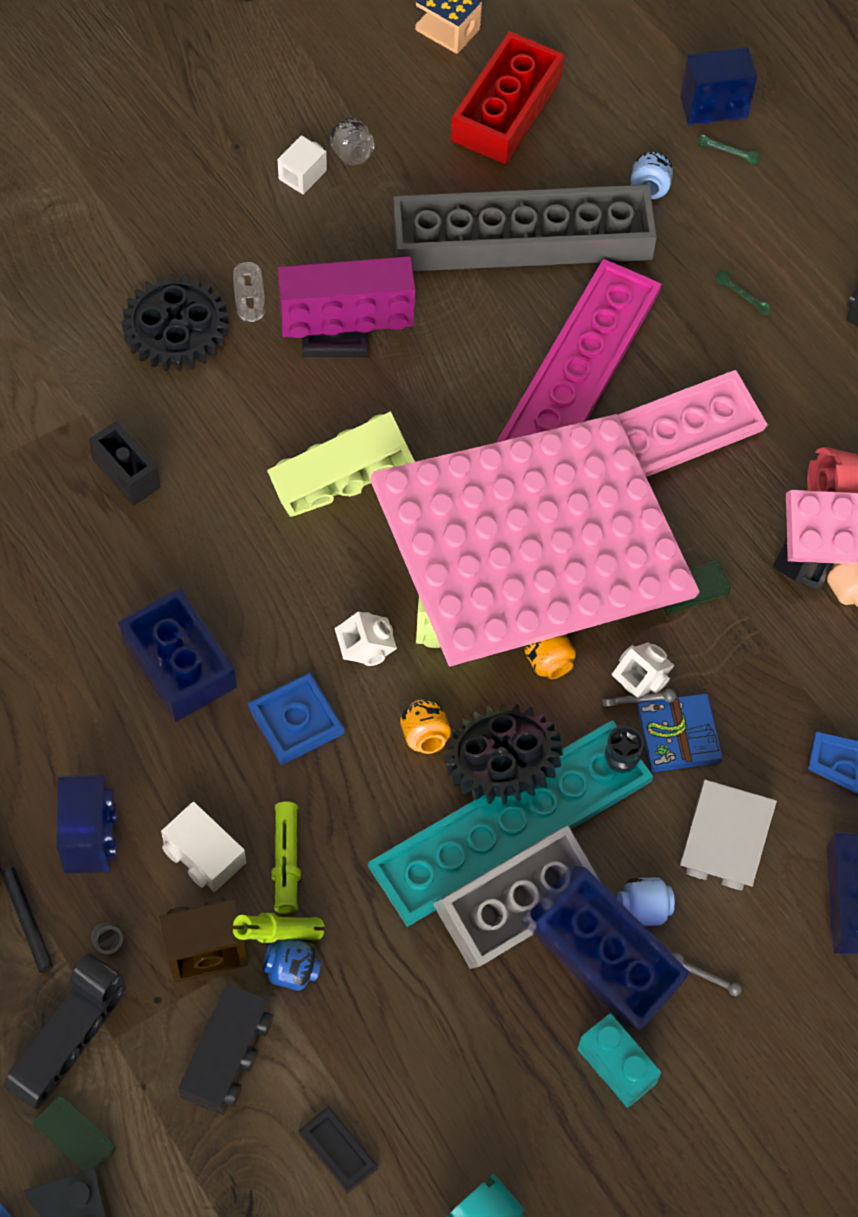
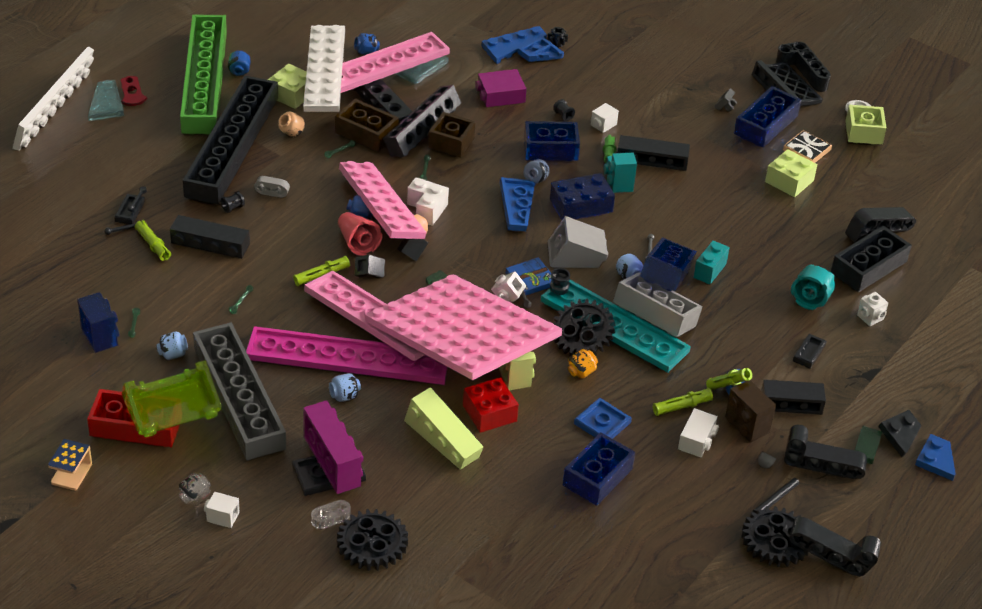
camera: 110 degrees left, 20 degrees down
(85, 824) = (719, 474): clear blue brick -> none
(124, 463) = (489, 528): black brick -> none
(365, 638) = (546, 394): white brick -> none
(372, 556) = (490, 404): none -> red brick
(485, 365) = (344, 387): none -> light blue head
(493, 109) = (172, 400): none -> clear neon green windscreen
(764, 482) = (369, 265): none -> black panel
(779, 425) = (321, 270): none -> lime pin

